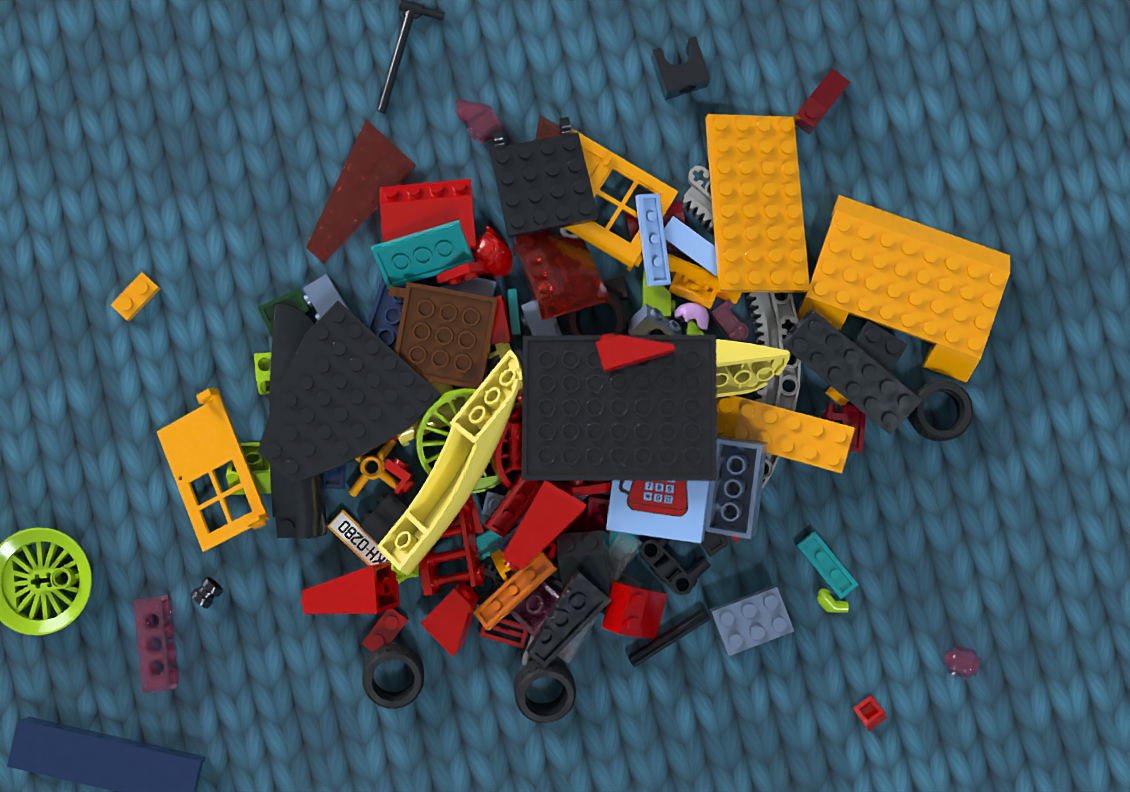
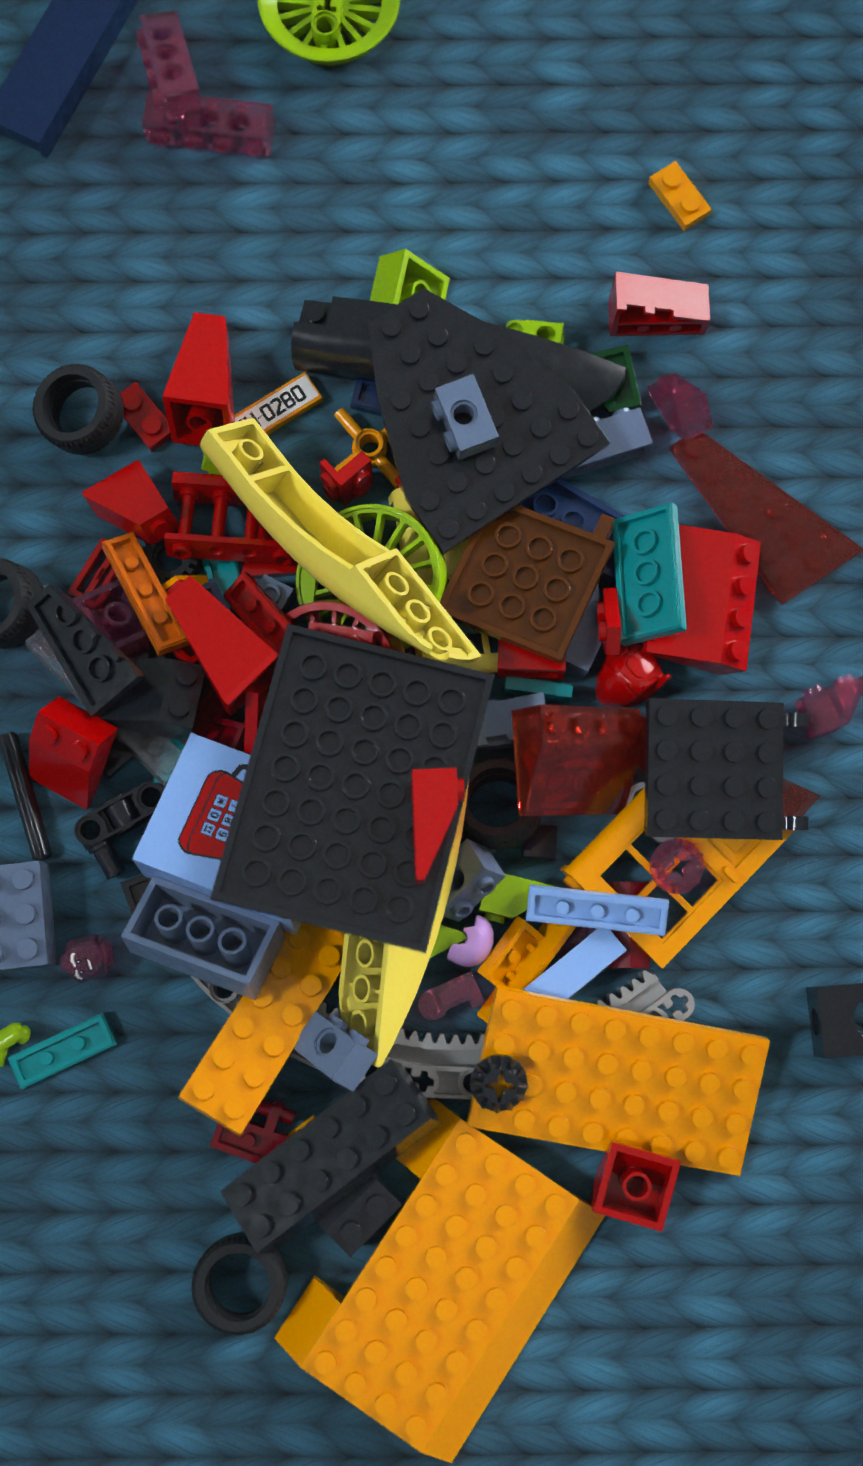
camera: 100 degrees right, 5 degrees down
(120, 681) = (168, 66): none -> clear pink brick
(198, 447) = (452, 227): light orange door -> none
(205, 594) = (255, 197): black wheel -> none
(225, 292) = (657, 306): none -> wedge
(292, 261) = (681, 406): none -> clear pink slope
(333, 399) = (464, 397): none -> sand blue brick
(384, 517) = (294, 442): black brick -> none
(611, 205) = (663, 859): none -> clear pink gear
(765, 564) = (87, 958): none -> clear pink head
(774, 282) = (487, 1072): none -> black gear
(786, 383) = (334, 1050): none -> sand blue brick
(819, 179) = (634, 1185): none -> red slope
(820, 101) = (755, 1224): dark red slope -> none

